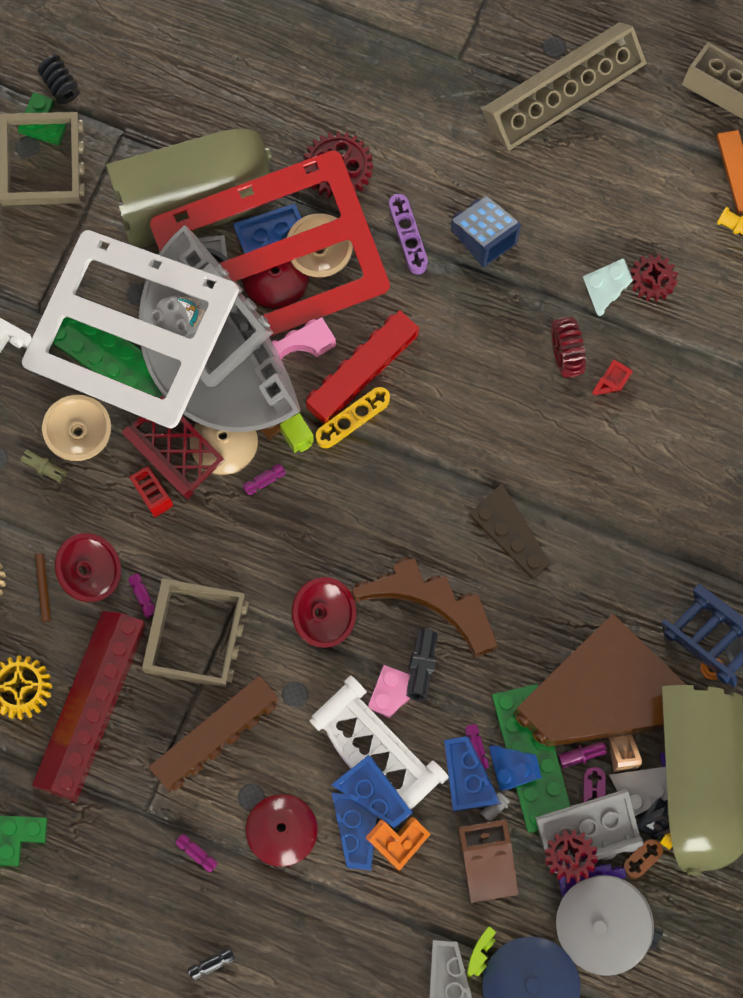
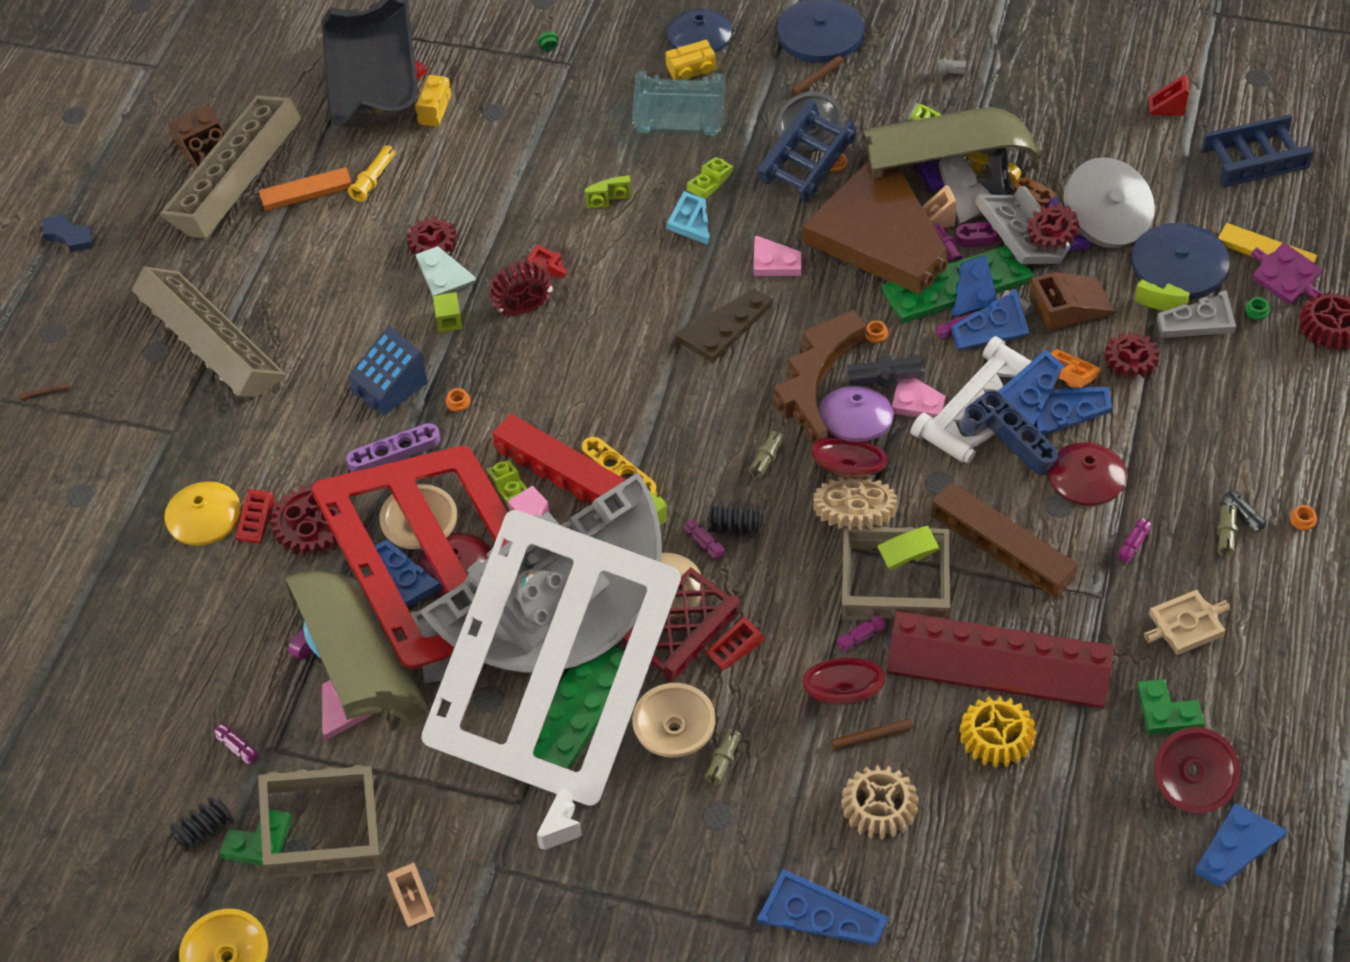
camera: 90 degrees left, 20 degrees down
(98, 876) = (1187, 622): none -> tan plate
(130, 105) = (236, 743): none -> magenta axle
(191, 940) = (1227, 531): none -> olive pin
(205, 641) = (908, 546): none -> lime slope
(260, 593) = (855, 503): none -> tan gear
(274, 505) = (735, 519): none -> black piece
(324, 763) = (1037, 454): none -> dark blue beam
(348, 545) = (766, 454): none -> olive pin
(353, 325) = (506, 480): none -> lime slope
(362, 93) = (202, 513): none -> yellow dish
(362, 132) = (259, 501): none -> red slope
(371, 642) = (856, 413): none -> medium lavender dish
(398, 903) = (1132, 355): none -> dark red gear
(453, 283) = (458, 400): none -> orange plate
(478, 660) = (876, 332): none -> orange plate
(558, 285) = (447, 312): none -> lime brick
(588, 589) = (775, 259): none -> bright pink wing
(651, 515) = (690, 218): none -> medium azure wing
(693, 438) = (601, 192): none -> lime slope
(705, 543) = (710, 179): none -> lime slope

